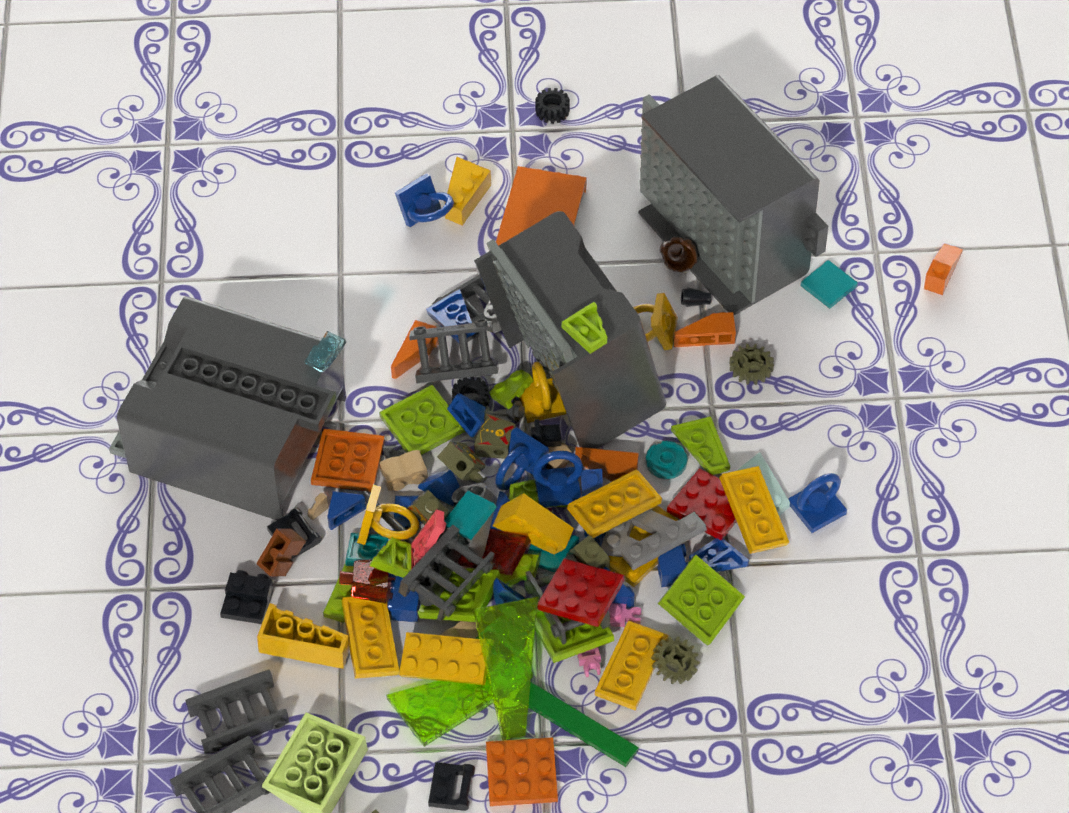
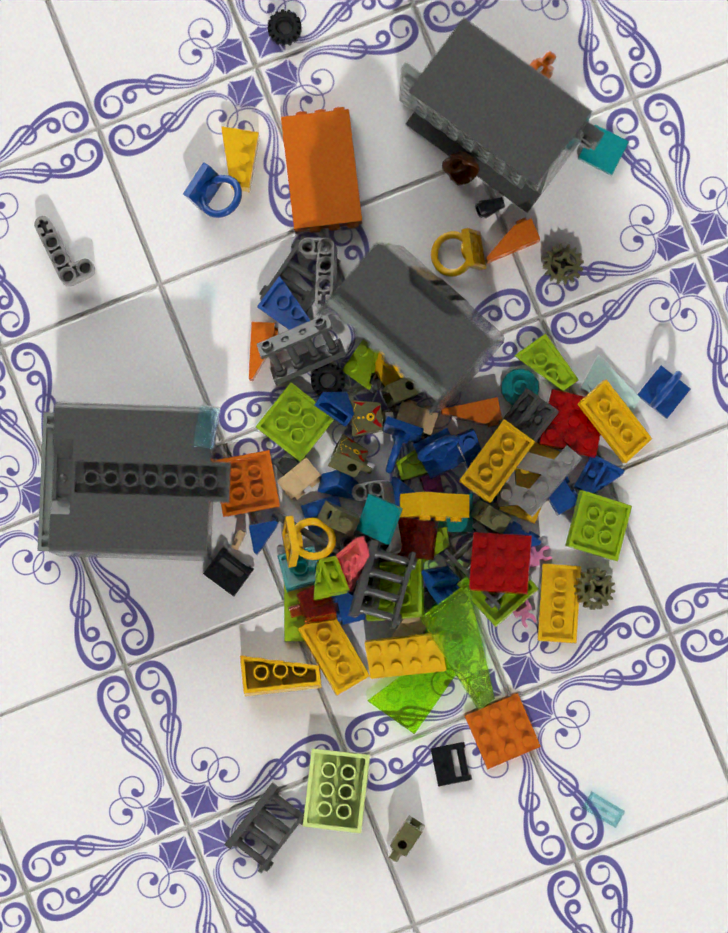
camera: 20 degrees left, 30 degrees up
(229, 693) = (247, 740): dark grey fence -> none
(247, 597) = (214, 648): black plate -> none
(258, 236) = (59, 250): none -> light grey beam
(278, 552) = (229, 602): dark orange brick -> none
(546, 413) = (397, 392): none -> olive torso
(546, 434) = (412, 407): black bracket -> none
(581, 726) = (536, 673): green tile -> none
(586, 328) = (450, 371): lime wing -> none
(670, 479) = (531, 414): none -> dark grey slope
(942, 268) = (700, 97): orange slope -> none

